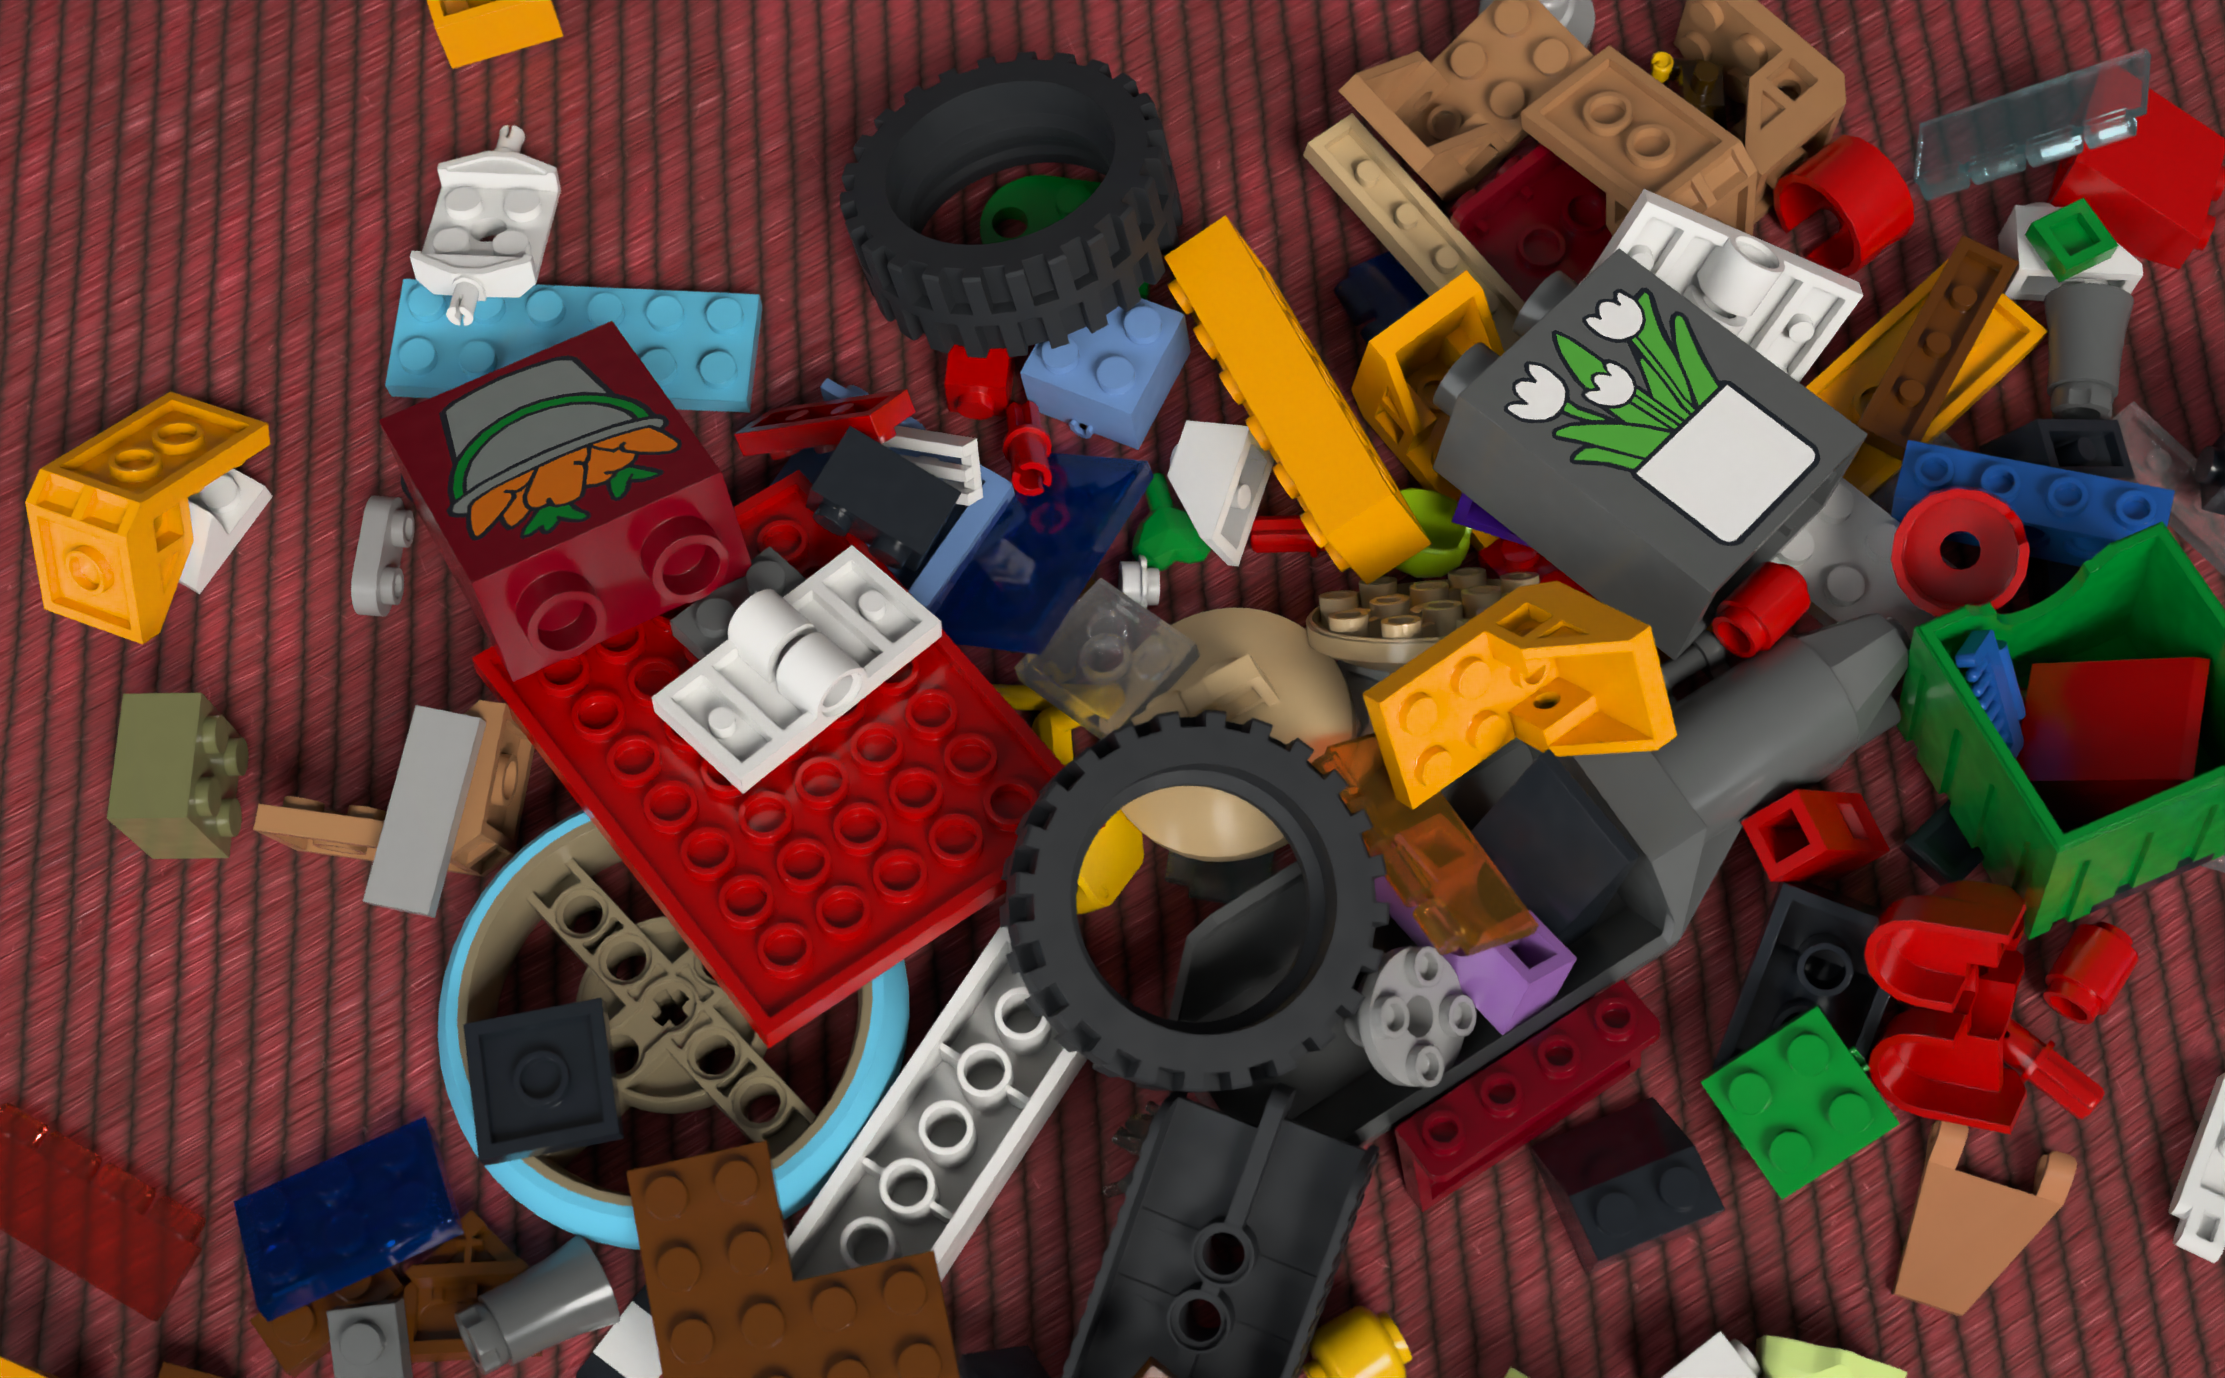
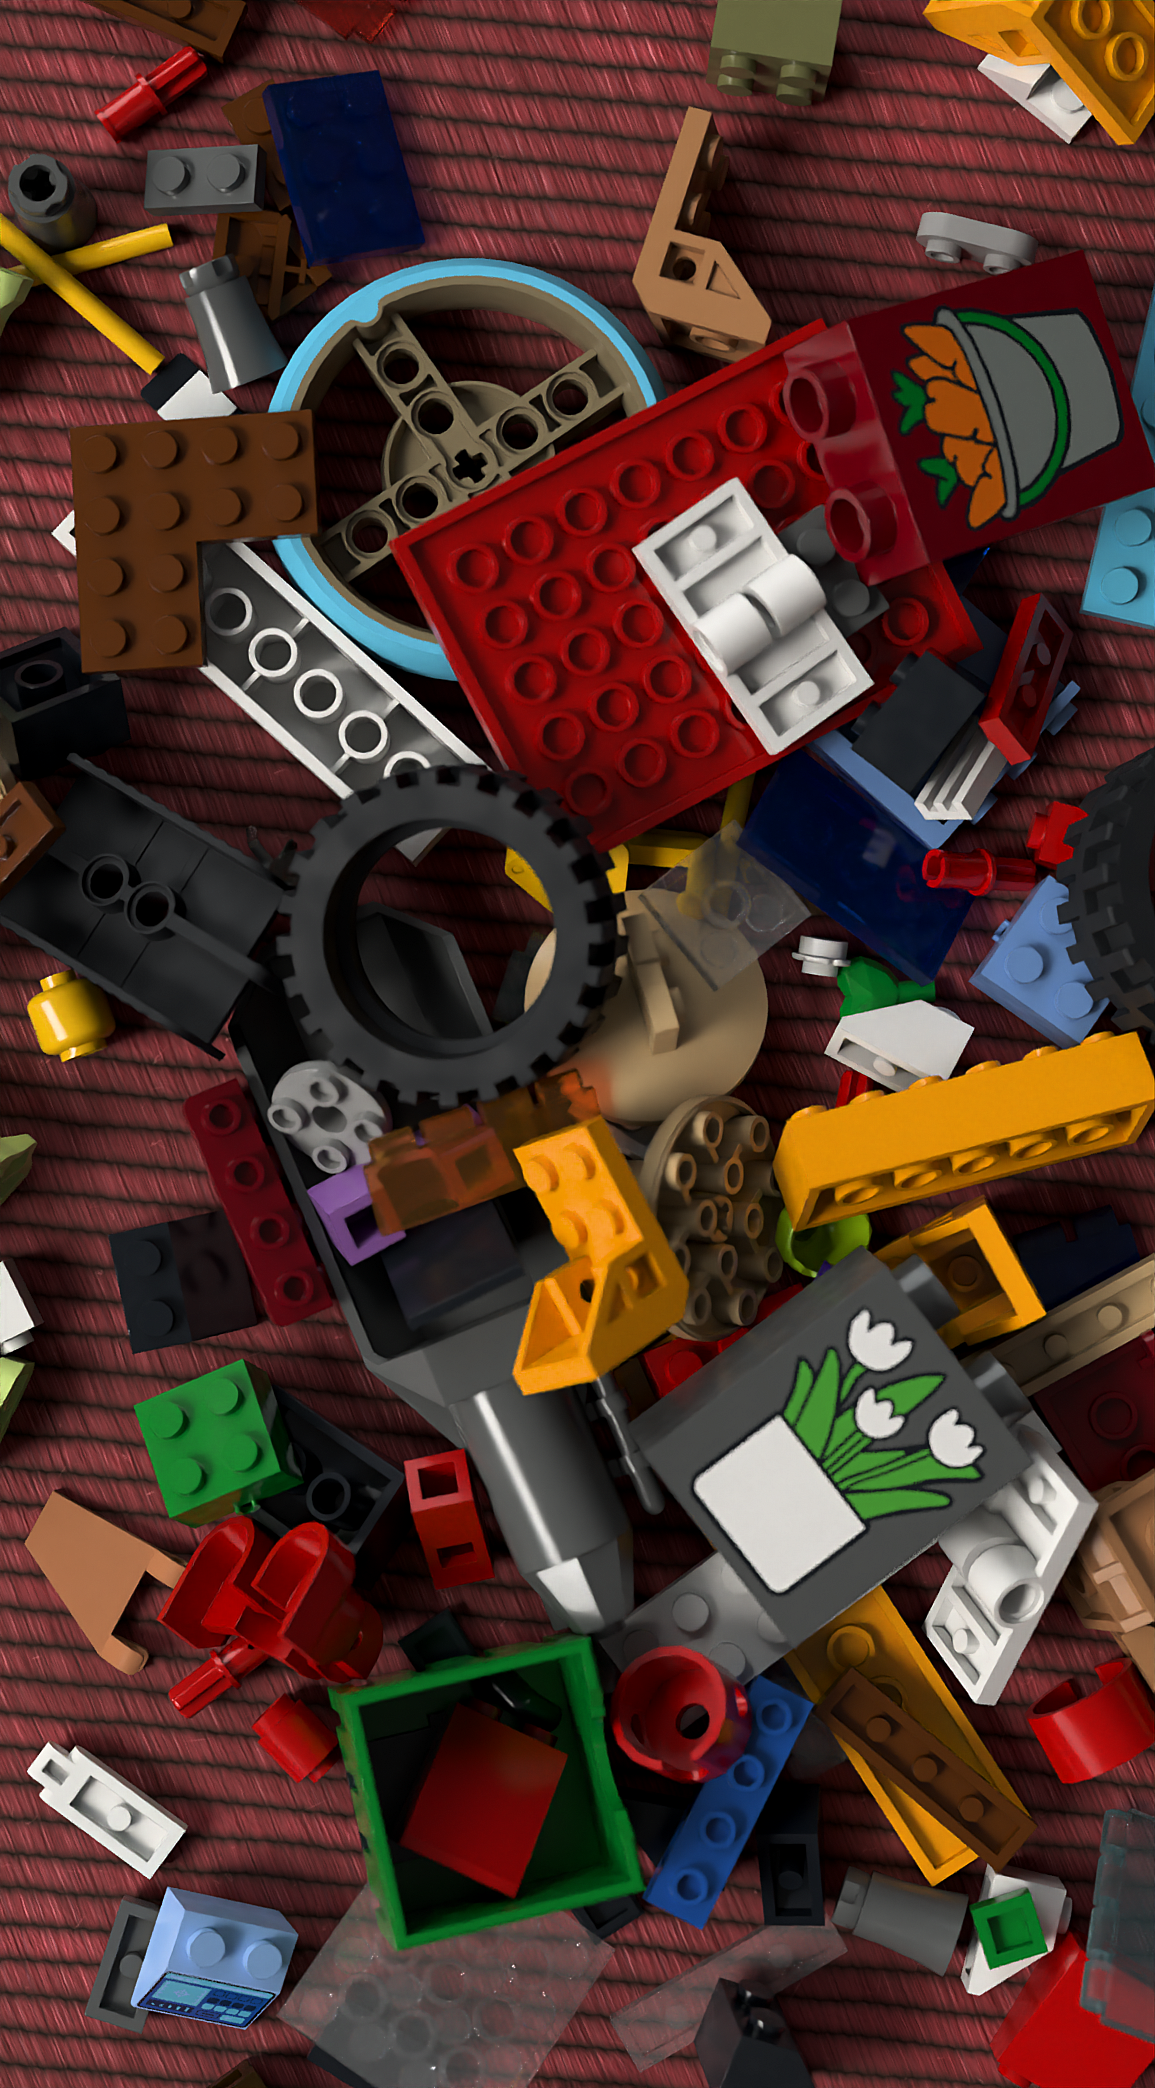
camera: 90 degrees right, 20 degrees up
(425, 811) = (673, 262): light grey tile -> none
(543, 1081) = (405, 345): black plate -> none
(1761, 609) = (652, 1514): red brick -> none
(1994, 684) = (526, 1701): blue piece -> none

